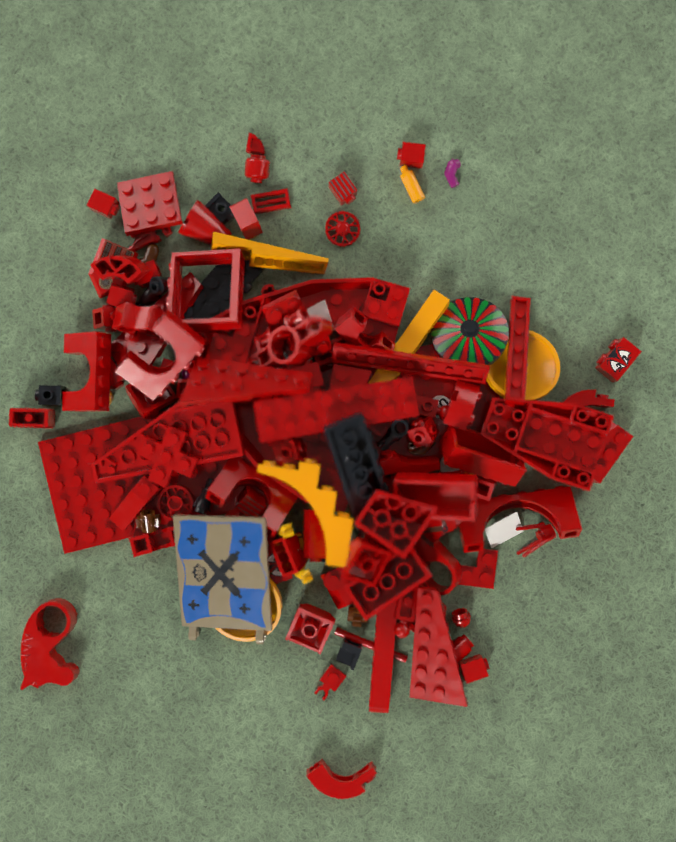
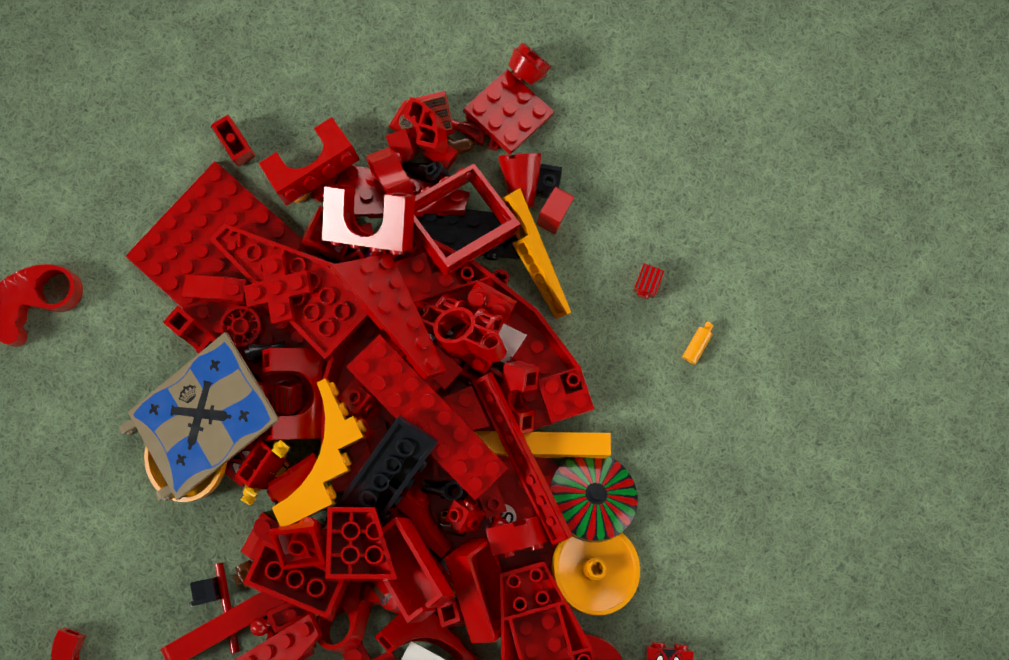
camera: 60 degrees right, 5 degrees down
(55, 398) = (268, 148): black brick -> none
(103, 204) = (478, 70): red brick -> none
(103, 318) = (371, 142): red brick -> none
(124, 164) = (528, 64): none -> red cone
(148, 521) = (206, 312): reddish brown gear -> none
(255, 145) = (632, 171): red tile -> none
(257, 168) = (611, 187): red head -> none
(271, 208) = (570, 214): red tile -> none
(311, 627) = (205, 536): red slope -> none
(331, 679) = (169, 591): red plate -> none
(342, 228) = (610, 306): red wheel -> none
(411, 154) = (726, 323): red brick -> none
(450, 171) = (739, 371): magenta arm -> none
(517, 350) = (607, 555): red tile -> none

